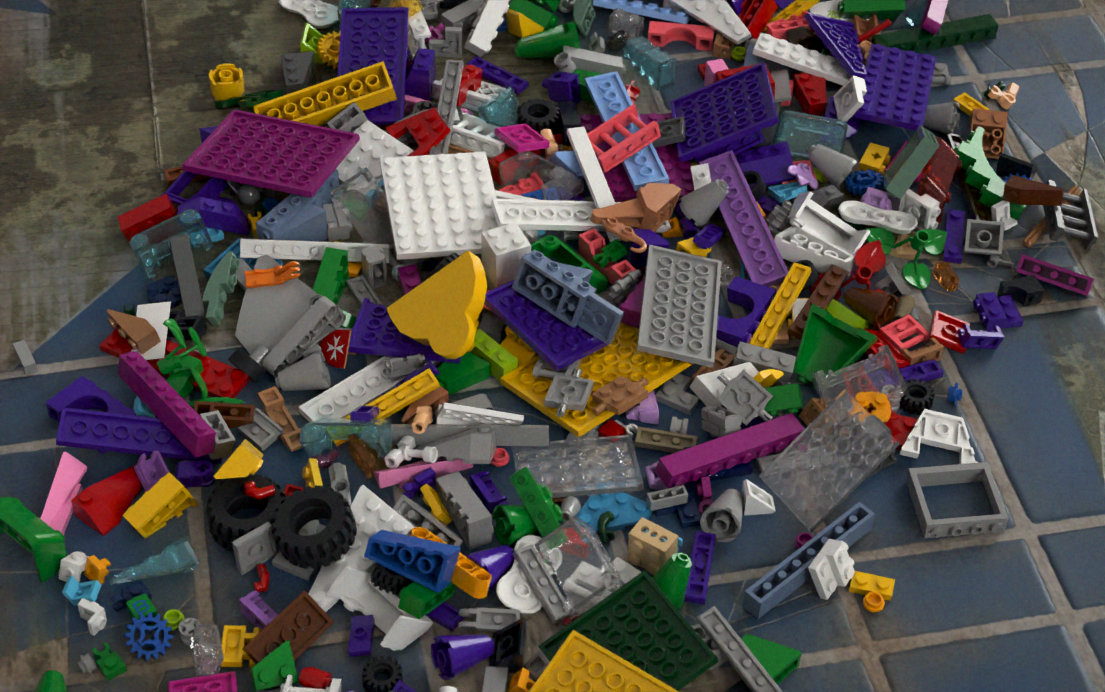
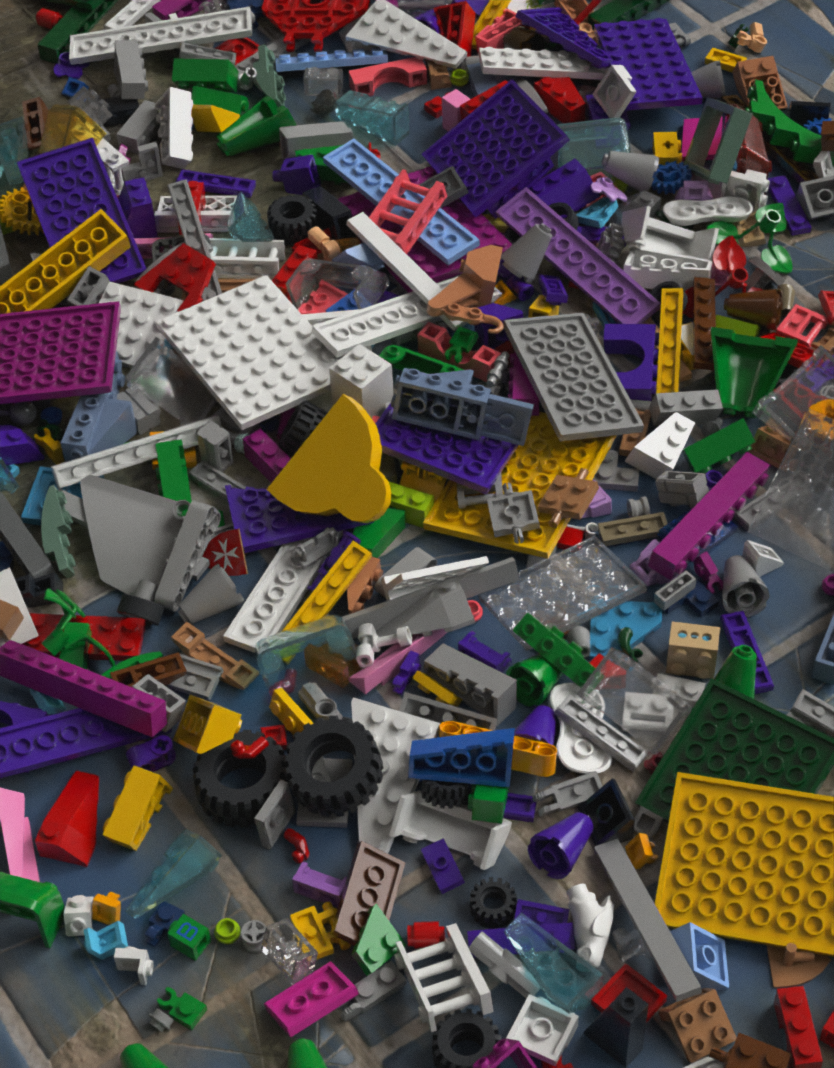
camera: 20 degrees left, 5 degrees up
(150, 470) = (104, 772): medium lavender hinge -> none
(154, 643) = (204, 967): blue gear -> none
(271, 276) = (110, 497): orange arm -> none
(364, 413) = (311, 616): dark purple tile -> none
(422, 419) = (373, 601): light nougat bar -> none
(521, 137) = (293, 246): dark pink tile -> none
(564, 63) = (291, 146): light grey wheel -> none
(597, 44) = (305, 114): light grey plate -> none
(700, 175) = (508, 227): white plate -> none
(744, 397) = (696, 451): light grey plate -> none
(768, 377) = (703, 425): yellow slope -> none
(949, 279) = (805, 250): clear orange beam -> none

